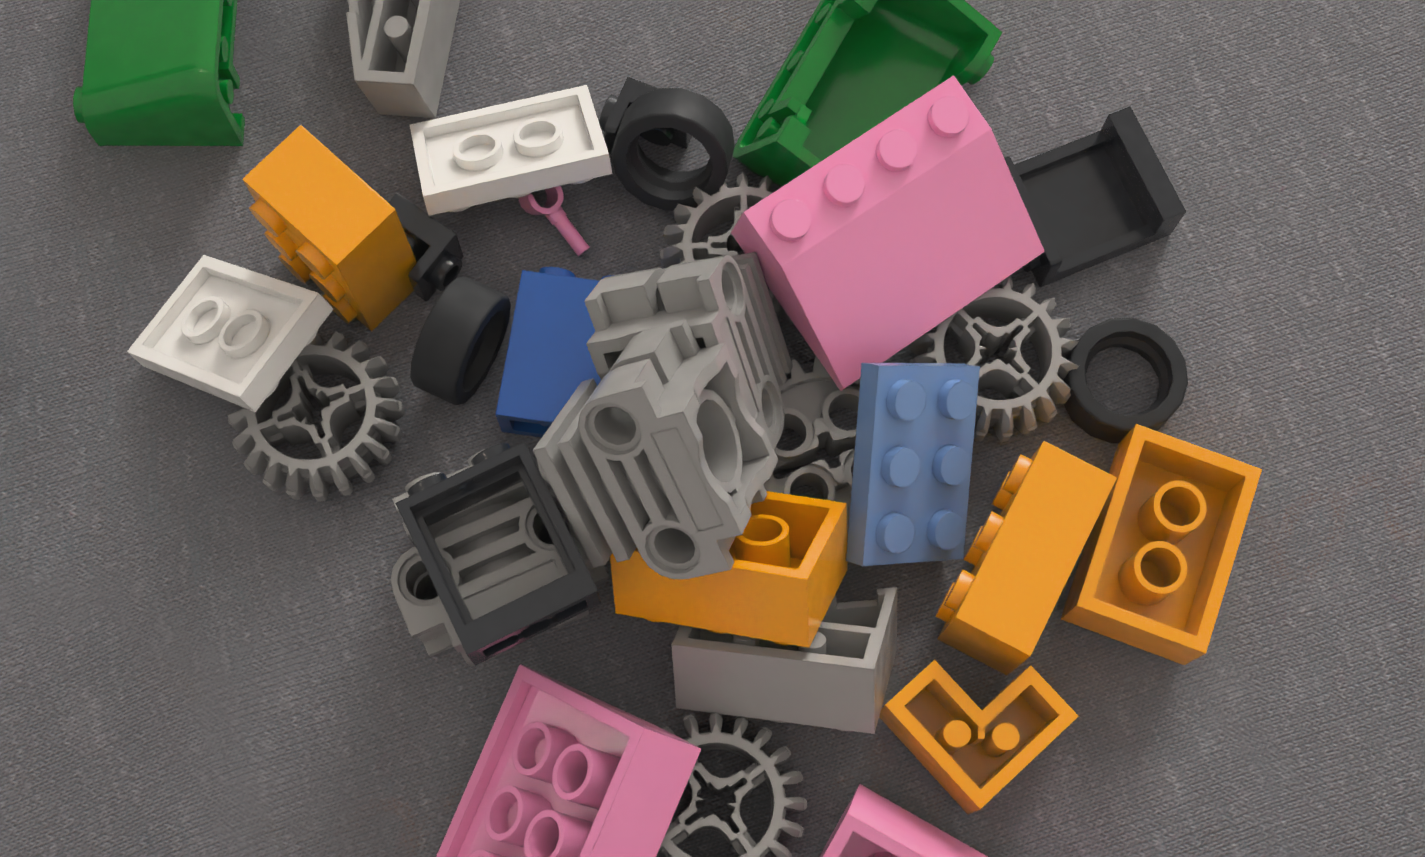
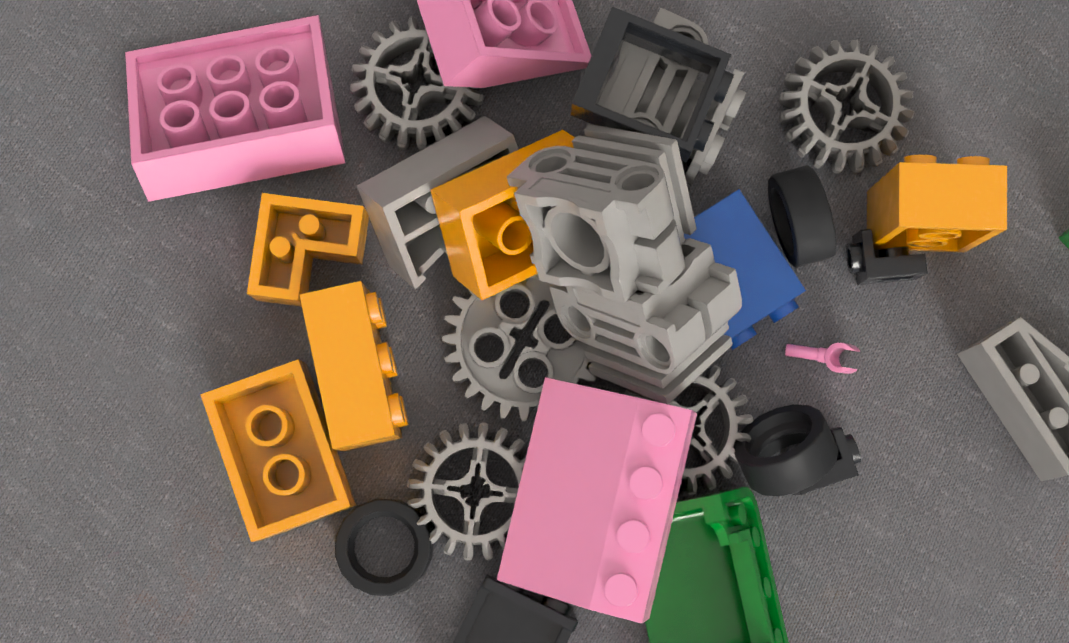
camera: 140 degrees right, 10 degrees up
(231, 331) = (940, 102): white plate -> none
(509, 150) = (888, 365): white plate -> none
(912, 462) = (466, 366): medium blue plate -> none

